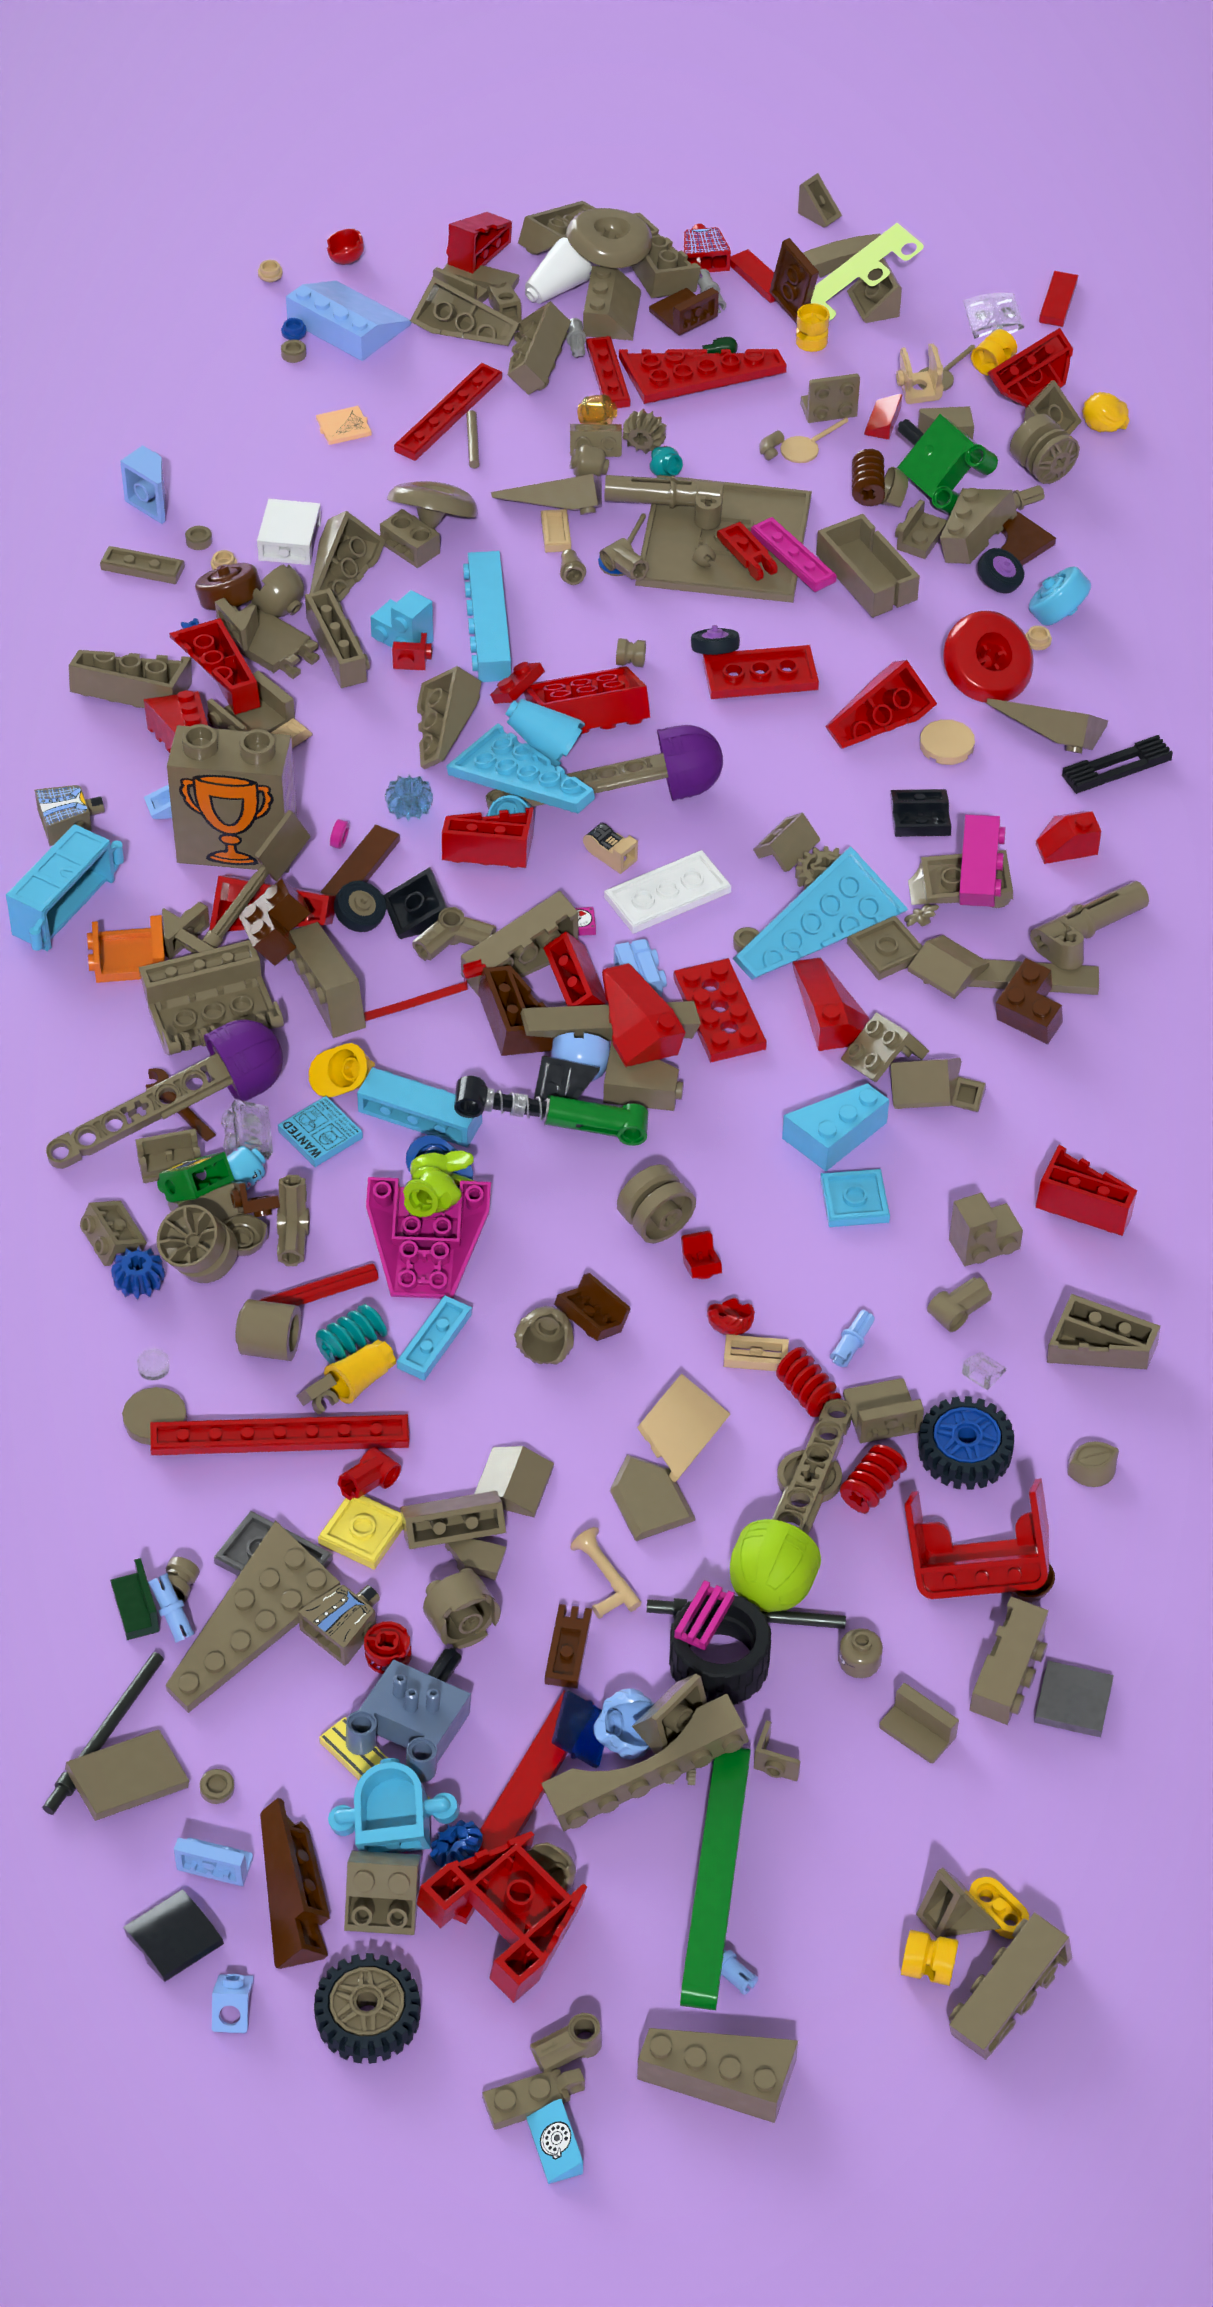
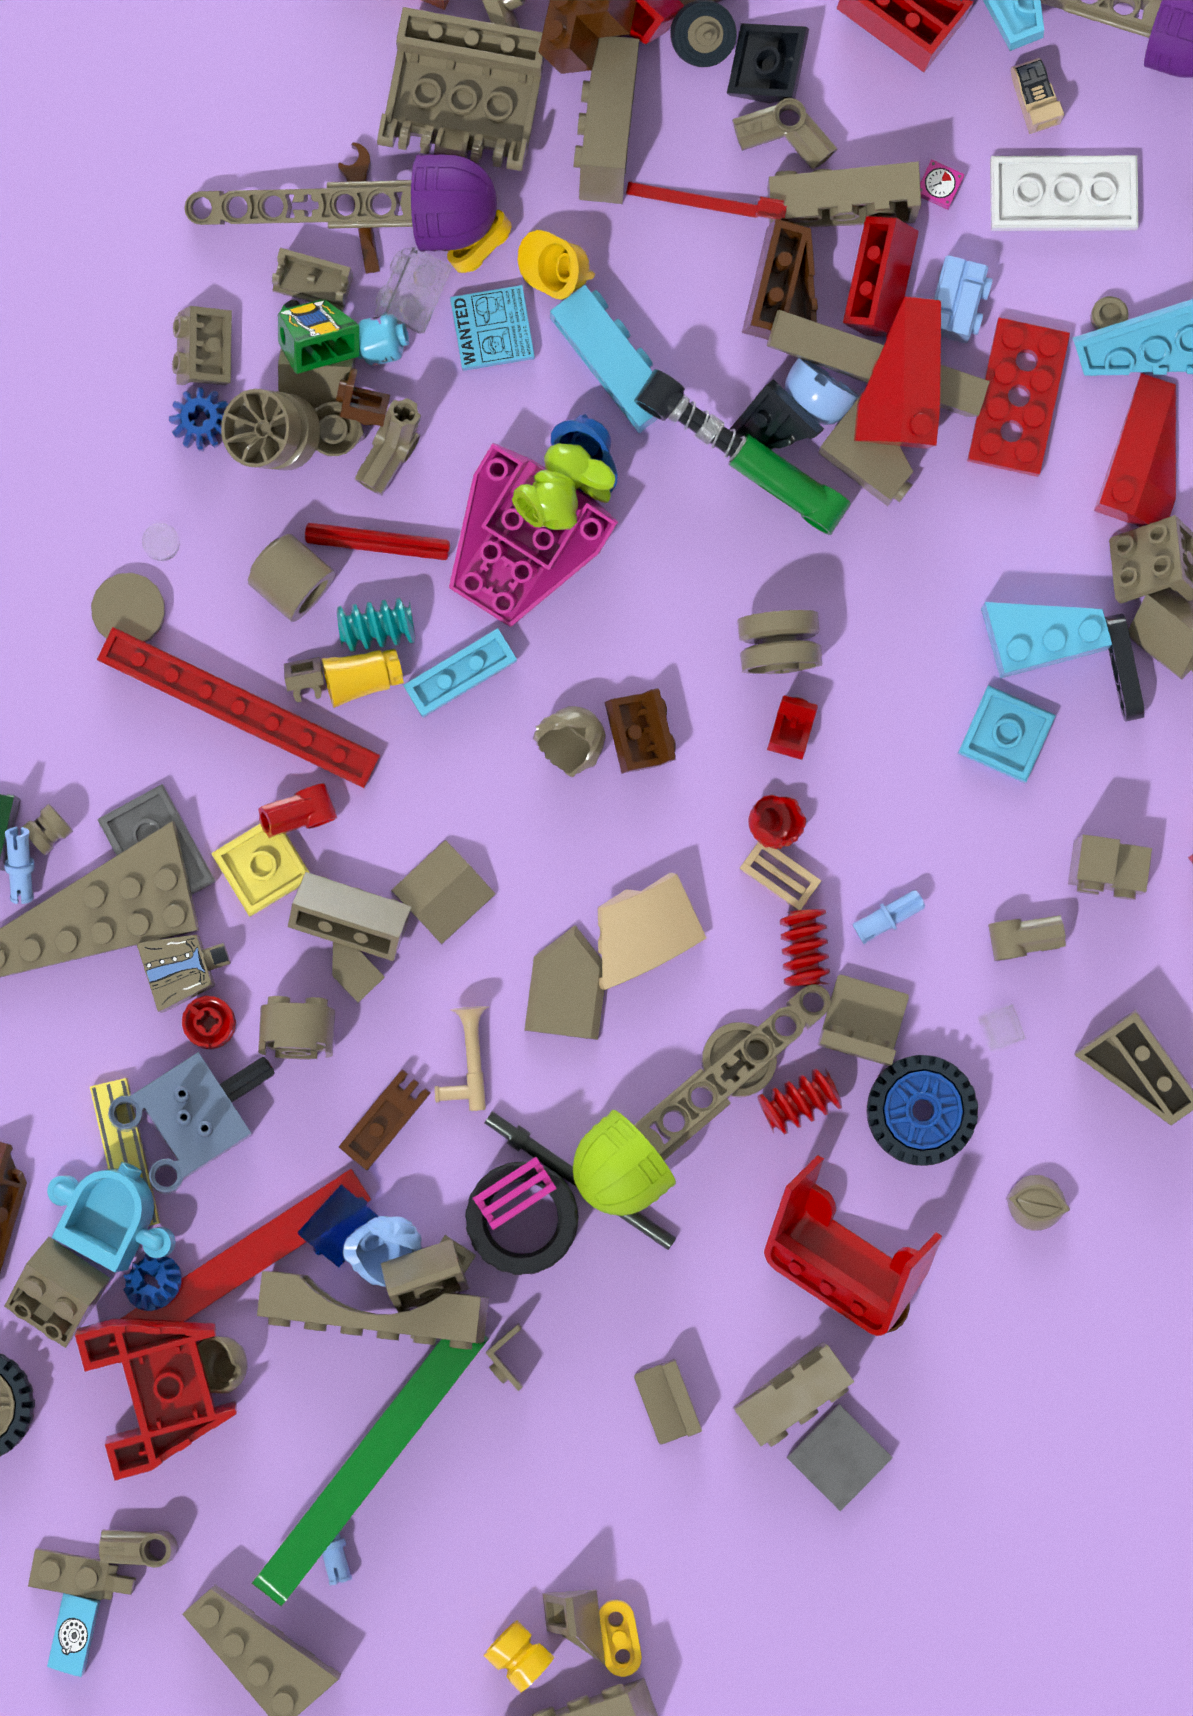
camera: 30 degrees right, 35 degrees up
(277, 1094) = (472, 256): none -> yellow plate
(860, 1653) = (658, 1297): dark tan head -> none
(911, 1122) = (1124, 669): none -> black beam

